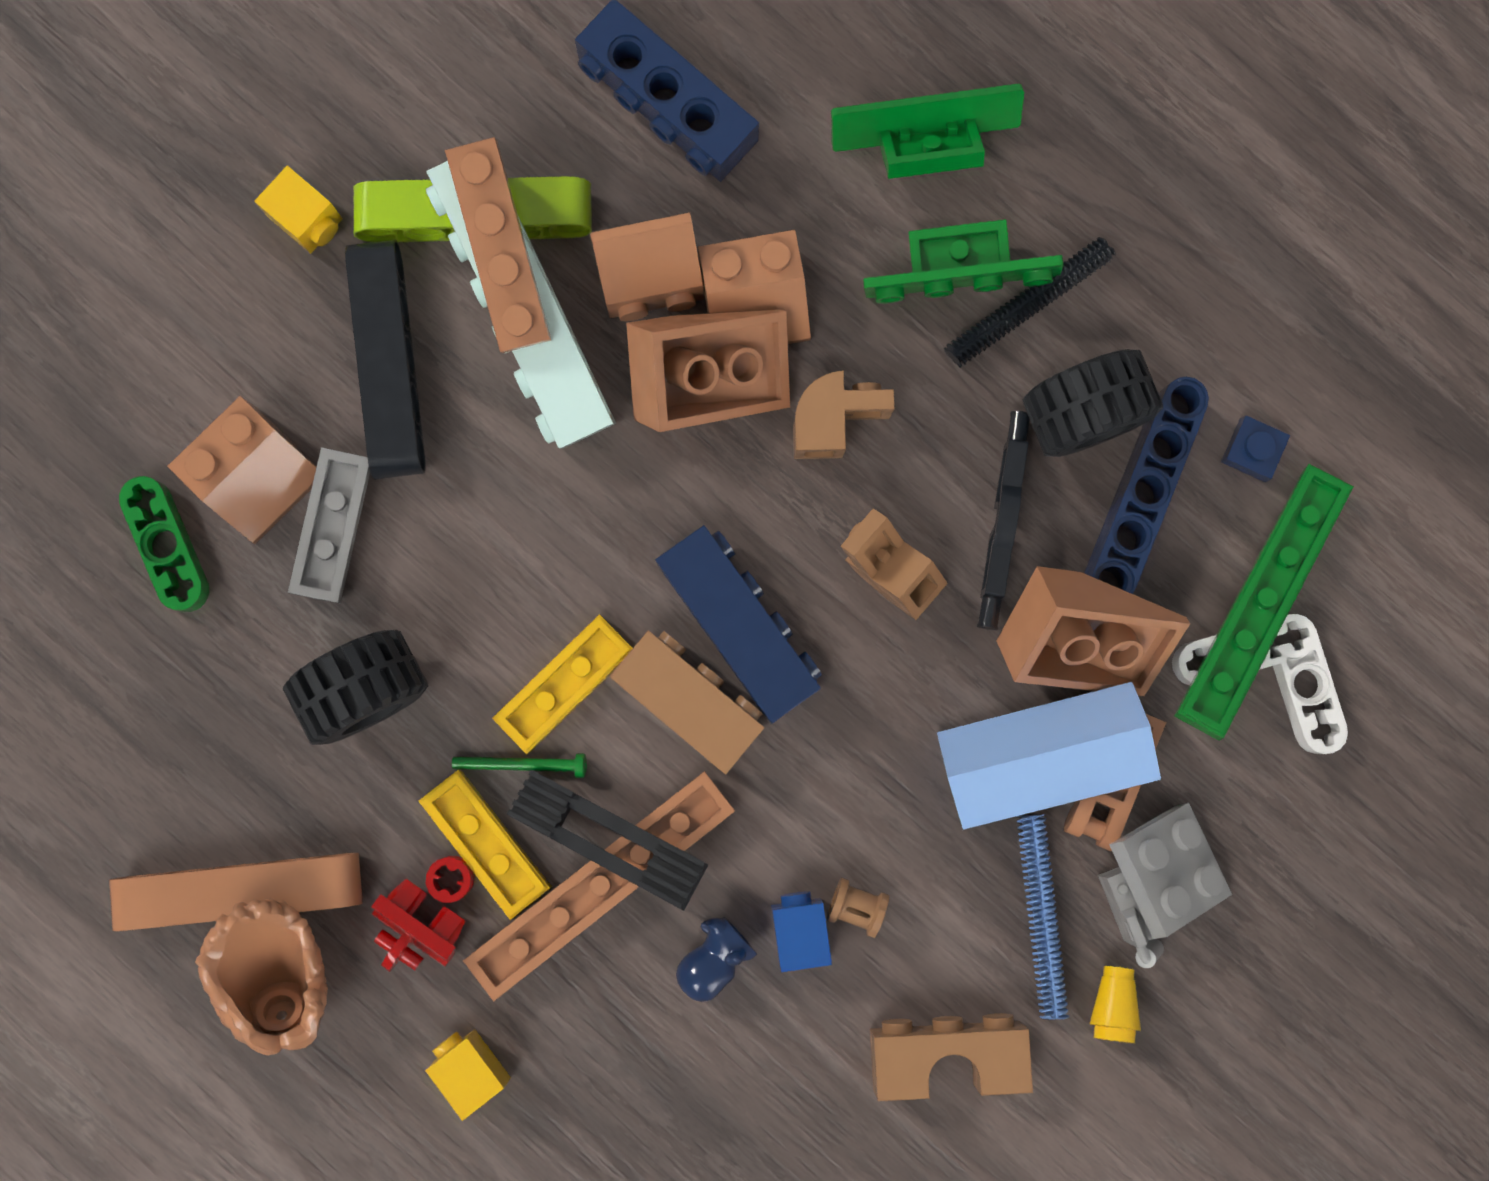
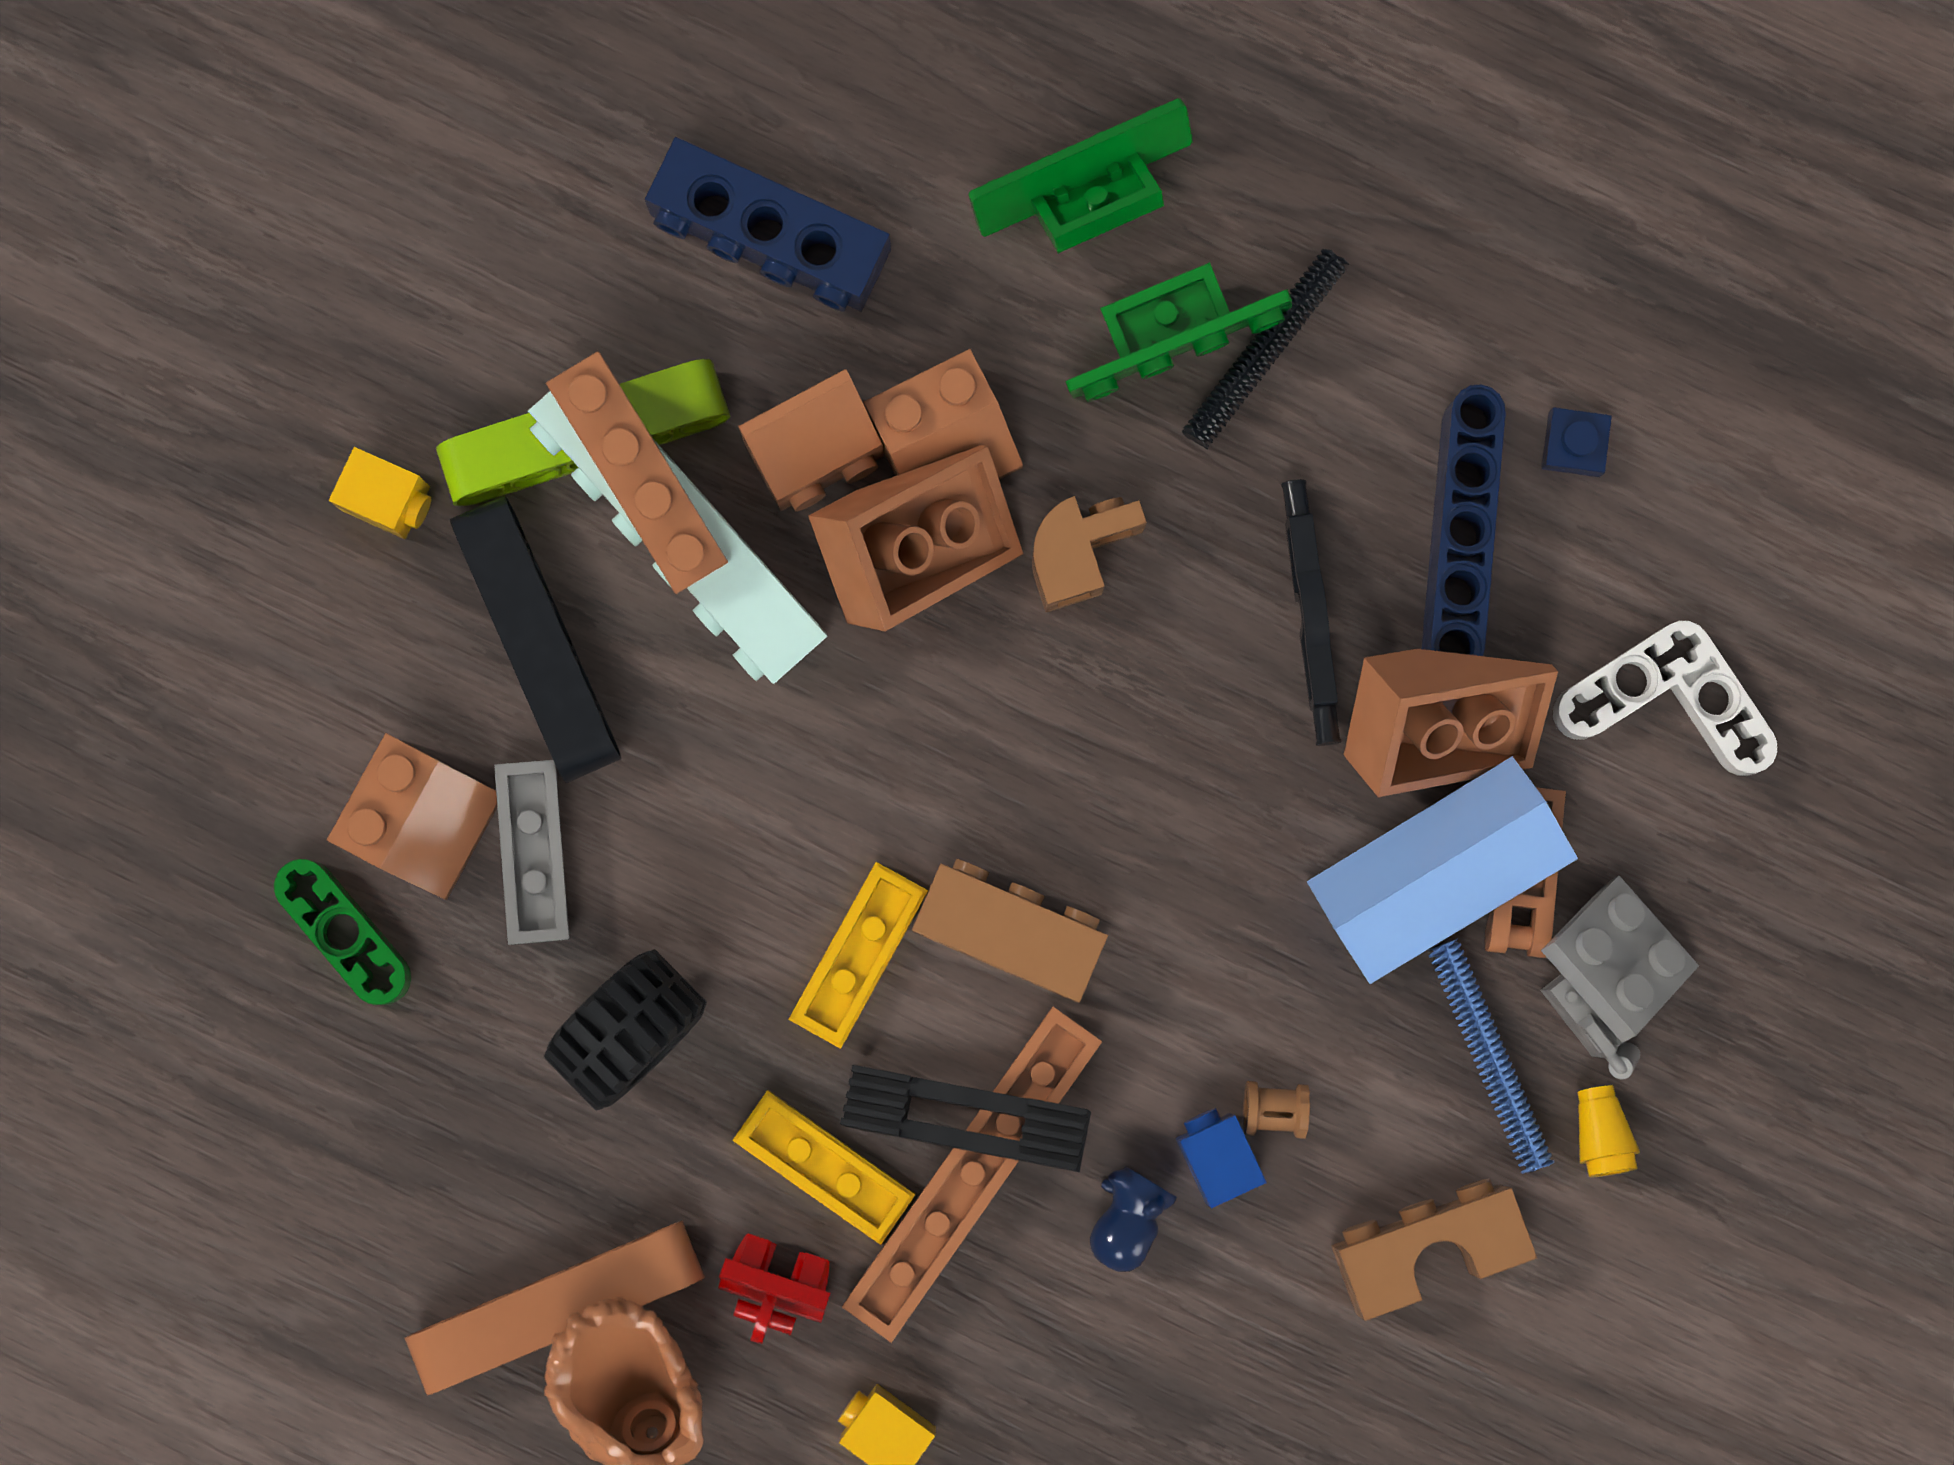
camera: 15 degrees left, 0 degrees up
(447, 894) = (796, 1238): red bush -> none
(576, 765) = (903, 1044): green piece -> none
(738, 624) = (1041, 825): dark blue brick -> none
(892, 565) = (1198, 704): medium nougat brick -> none
(1092, 402) = (1372, 449): black tyre -> none
(1263, 602) = (1636, 618): green tile -> none

